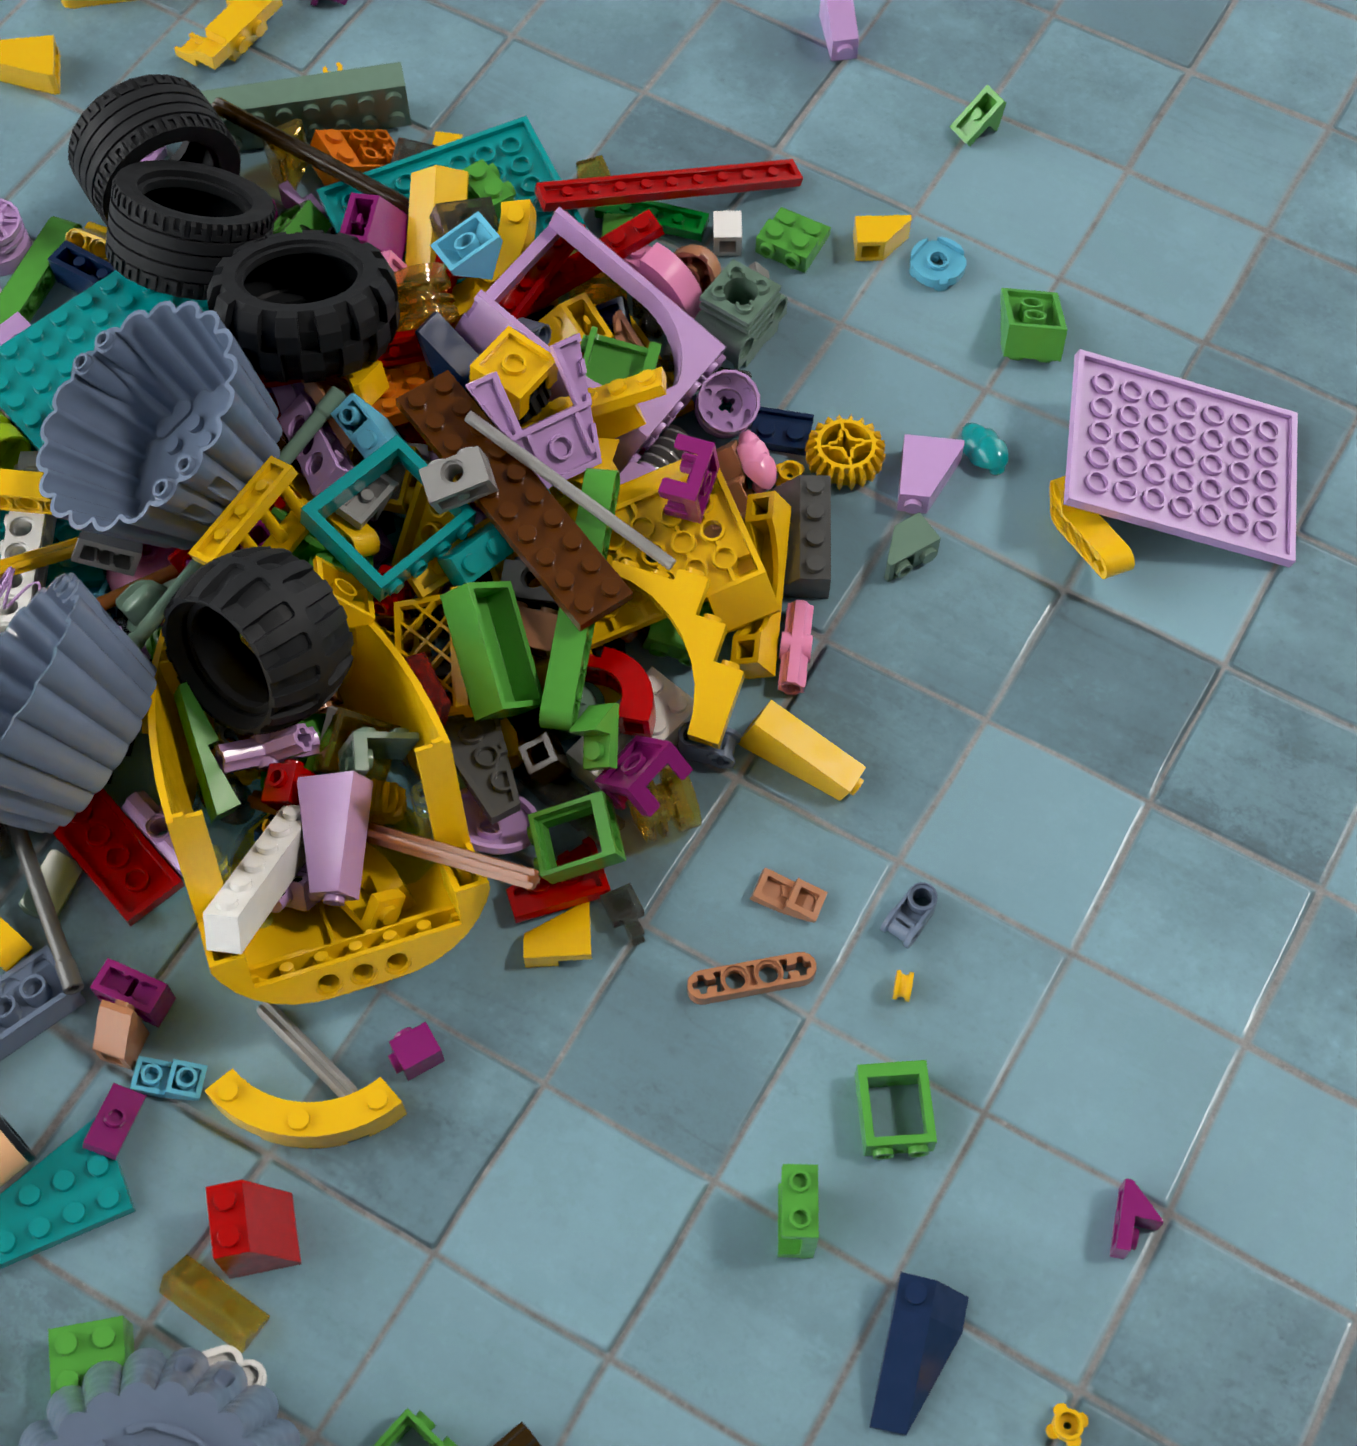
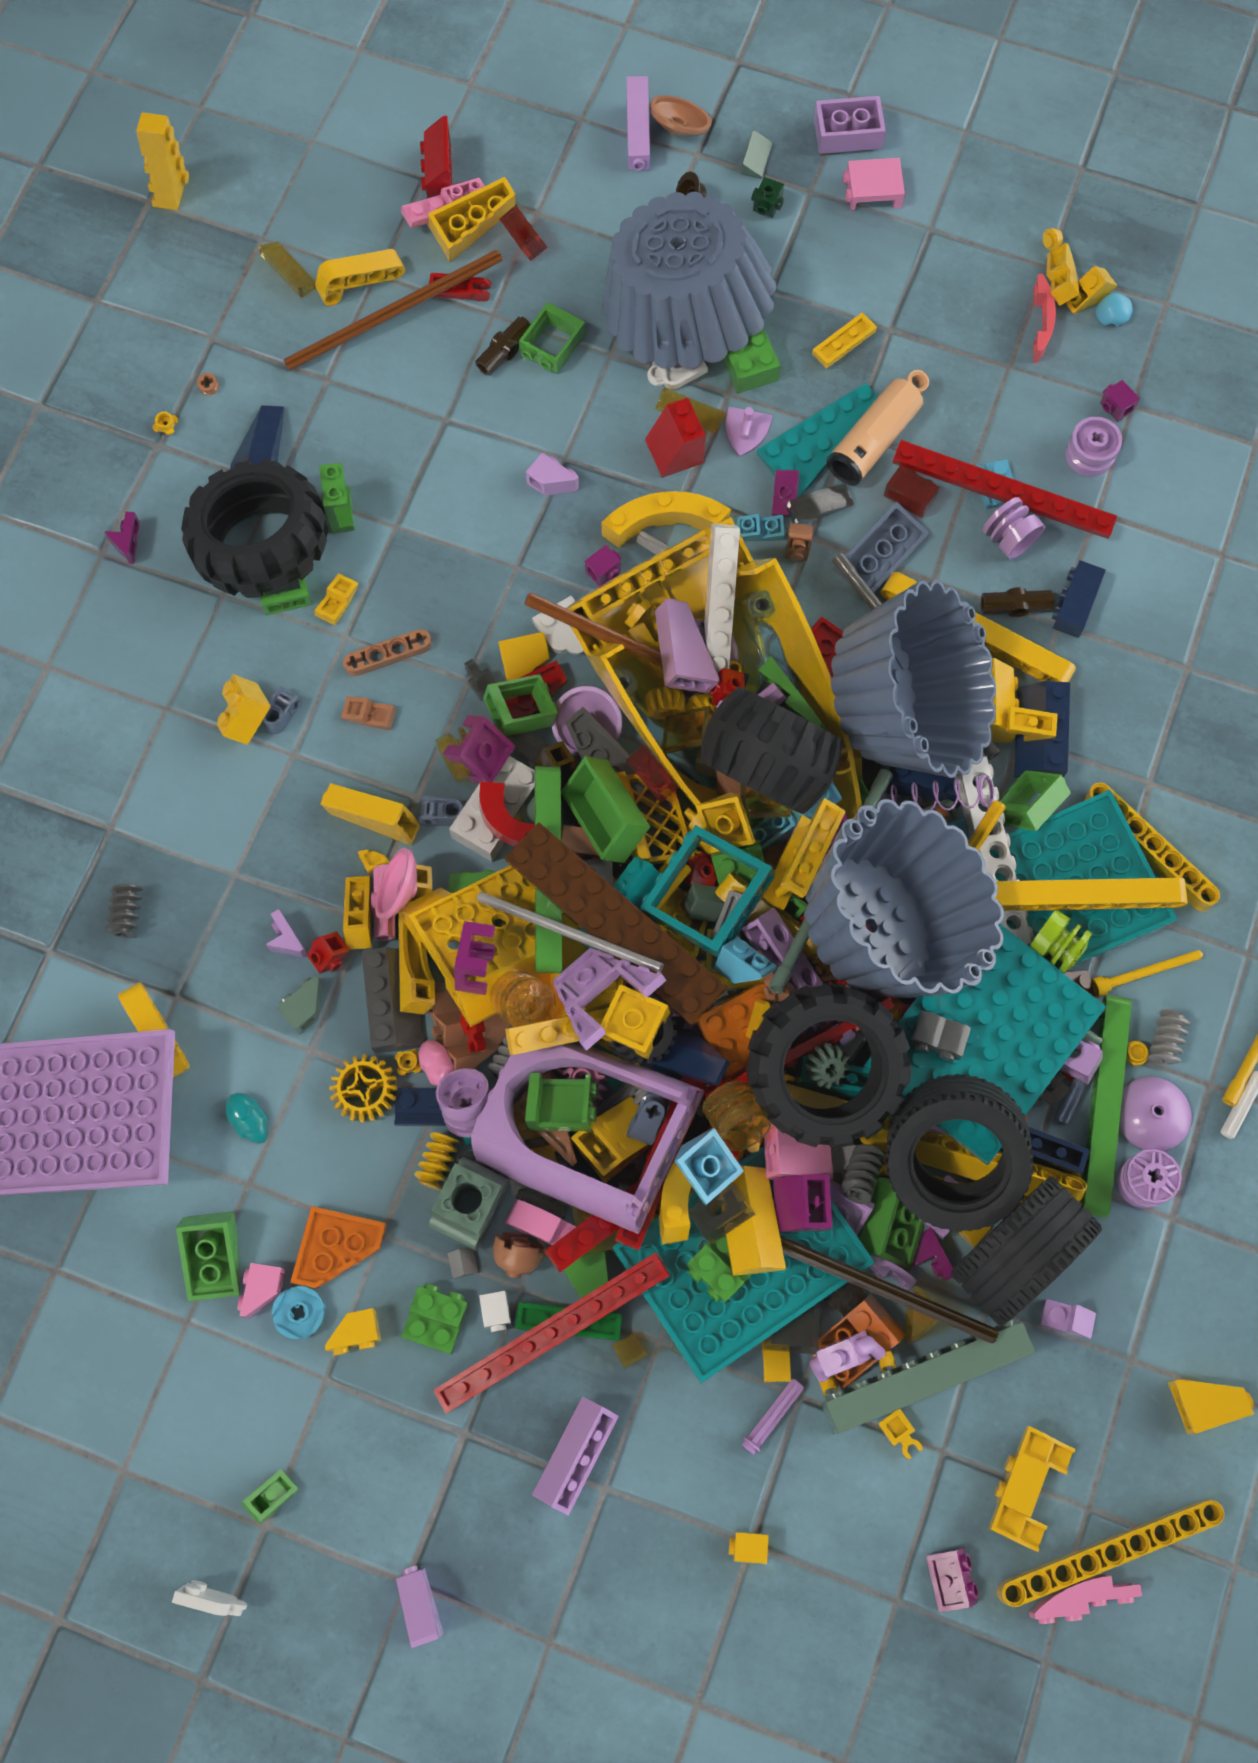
camera: 170 degrees right, 10 degrees up
(70, 1090) = (819, 504): none -> clear smoke slope
(137, 1256) = (746, 429): none -> lavender shield
(148, 995) = (801, 566): magenta brick -> none
(368, 744) = (673, 715): sand green bracket -> none
(372, 122) = (845, 1355): none -> lavender torso
(396, 546) = (703, 903): none -> sand green brick
(463, 1210) = (550, 477): none -> lavender slope
(474, 484) = (662, 900): light grey brick -> none
(488, 99) = (772, 1416): none -> lavender axle
(492, 974) = (558, 634): none -> white plate
(513, 24) = (749, 1547): none -> yellow brick
(600, 733) = (516, 770): bright green slope -> none
(641, 451) = (513, 992): none -> clear yellow wheel
(667, 106) = (575, 1456): none -> lavender brick
(681, 602) = (451, 858): yellow arch -> none
(772, 364) = (436, 1160): none -> yellow piece
(778, 624) = (397, 884): none -> bright pink dish
(805, 706) = (372, 859): none -> yellow tile
(816, 1071) = (337, 599): none -> yellow slope
(830, 642) = (357, 913): none -> yellow slope
(873, 593) = (328, 952): none -> red brick
(892, 314) = (334, 1245): none -> orange plate
(903, 985) = (282, 660): yellow bush -> none
(923, 623) = (287, 942): none -> lavender slope
(925, 470) = (295, 1080): lavender slope -> none
(957, 911) = (244, 711): none -> yellow brick
(975, 284) = (262, 1288): none -> bright pink slope
(1007, 1155) = (246, 492): none -> black tyre
(1042, 48) = (198, 1597): none -> white plate
(1128, 683) = (122, 910): none -> dark grey piece

